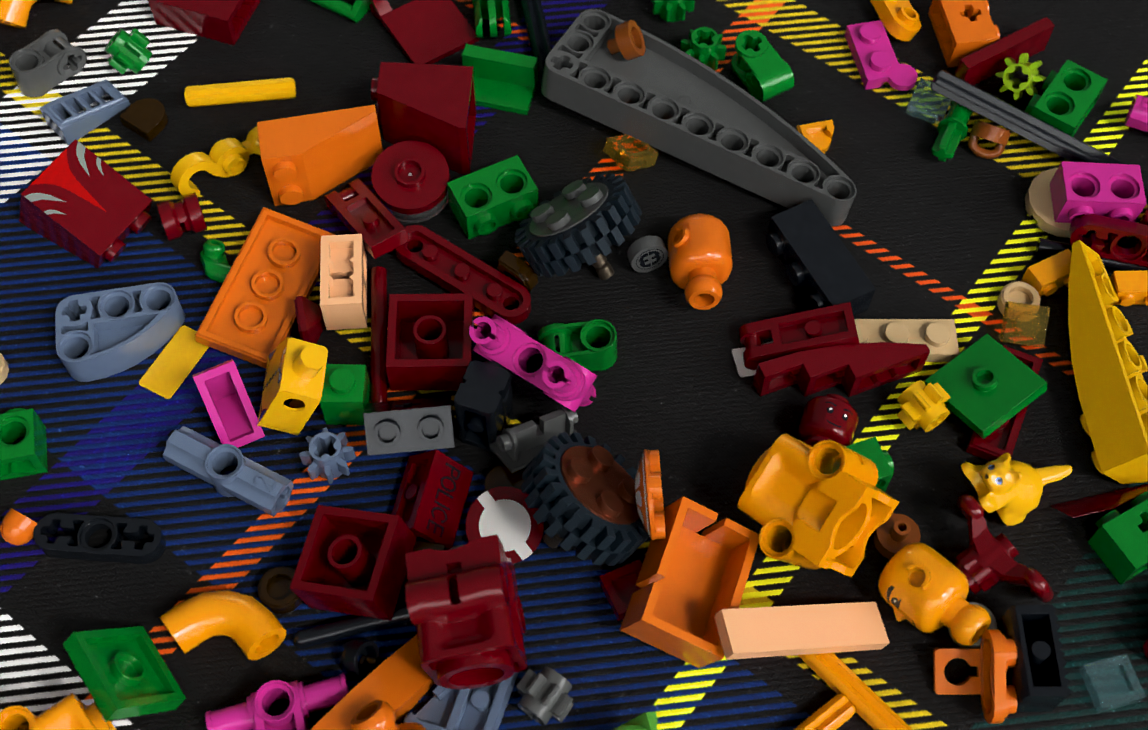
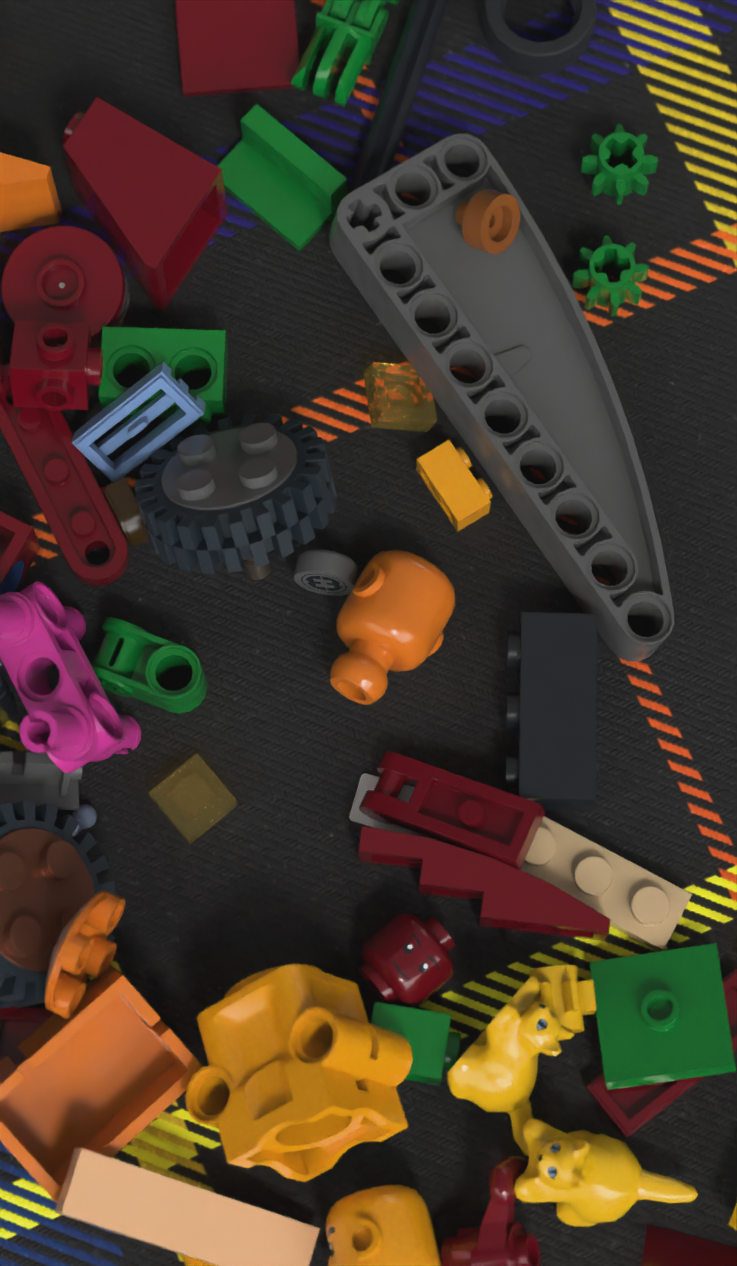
camera: 30 degrees right, 15 degrees up
(432, 208) = (53, 364): none -> dark red brick
(484, 214) = (172, 393): none -> medium blue tile
(646, 406) = (193, 798): none -> clear yellow plate
(686, 183) = (453, 484): none -> light orange piece
(760, 66) = (676, 357): green piece -> none
(818, 133) = (689, 505): light orange tile -> none
(896, 534) = (411, 1173): dark orange tile -> none
(919, 450) = (503, 1060): none -> yellow animal

